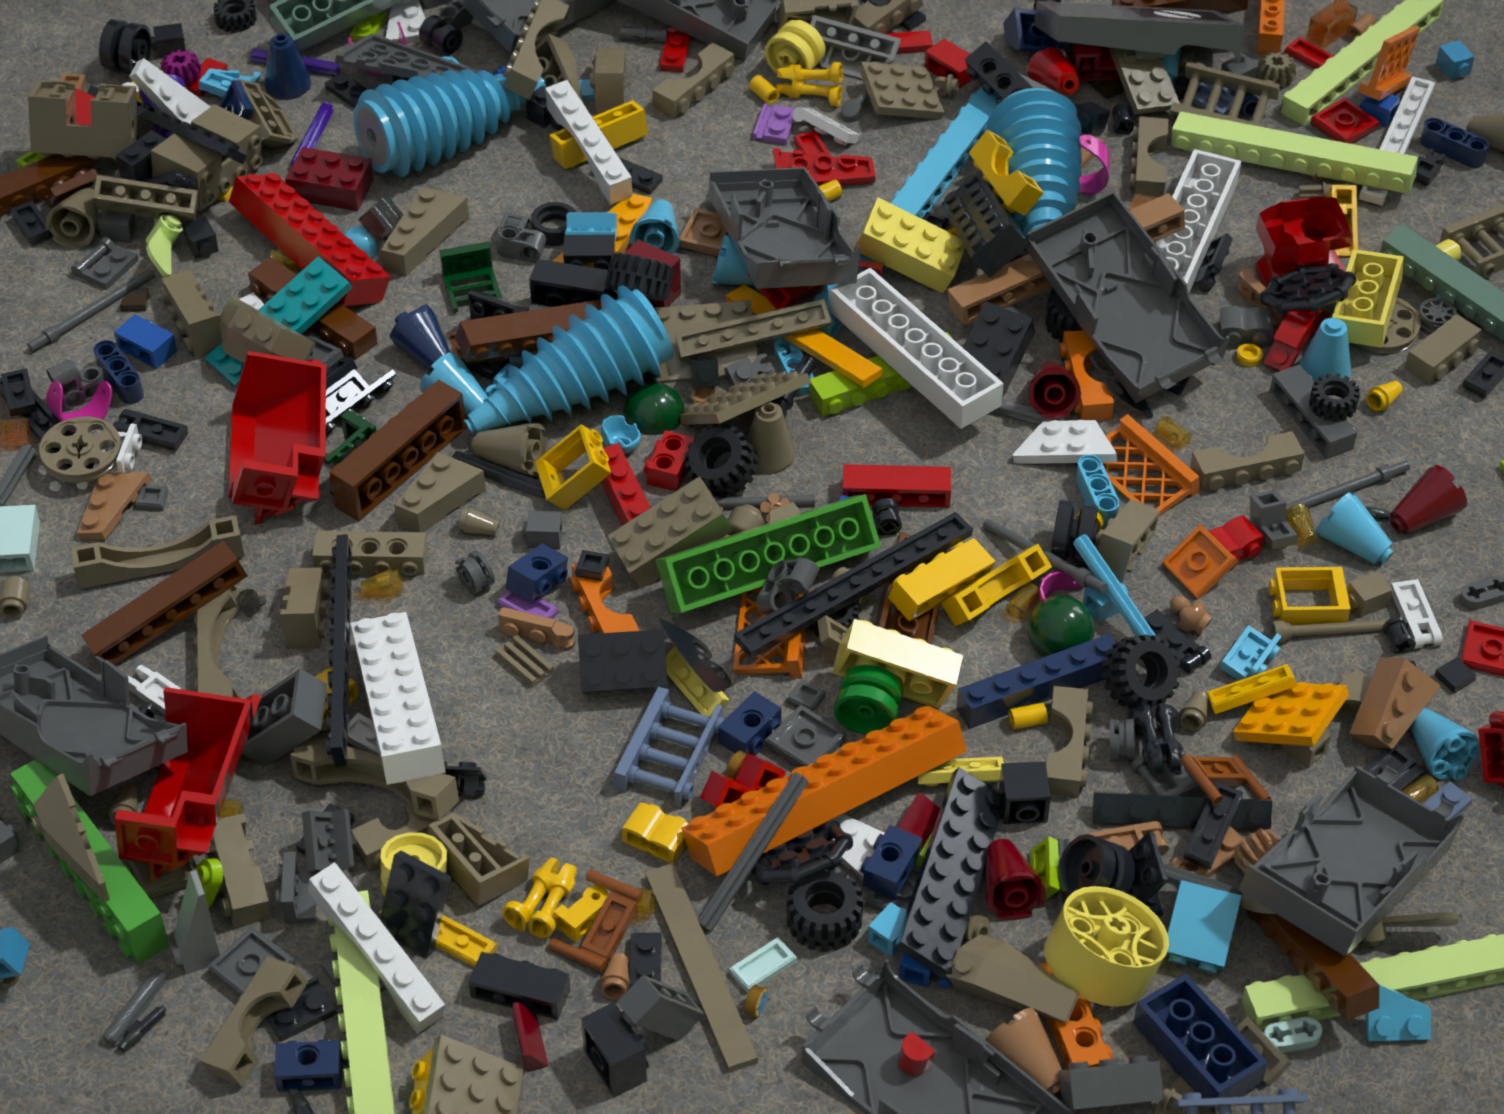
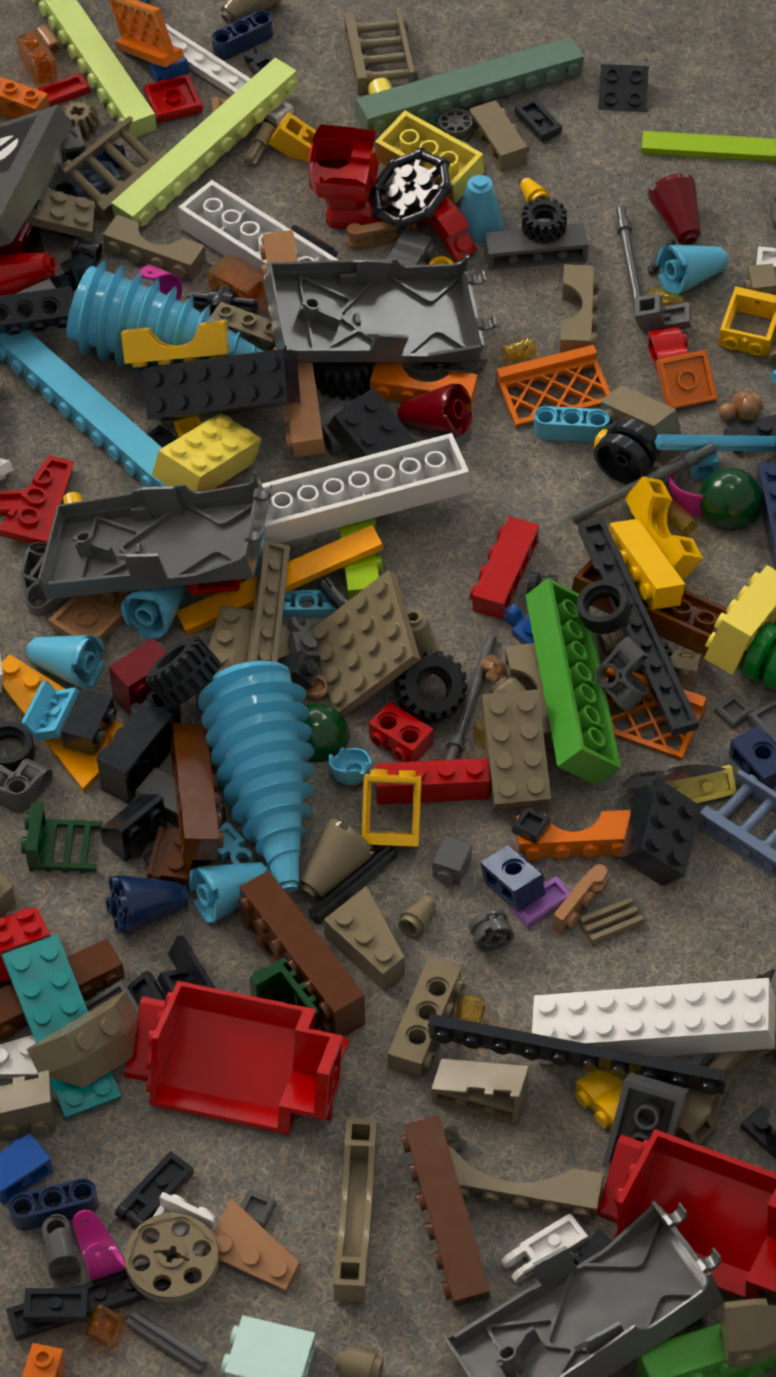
camera: 70 degrees left, 5 degrees up
(855, 559) = (607, 623): none -> black tyre
(1065, 443) = (503, 426): white wing -> none

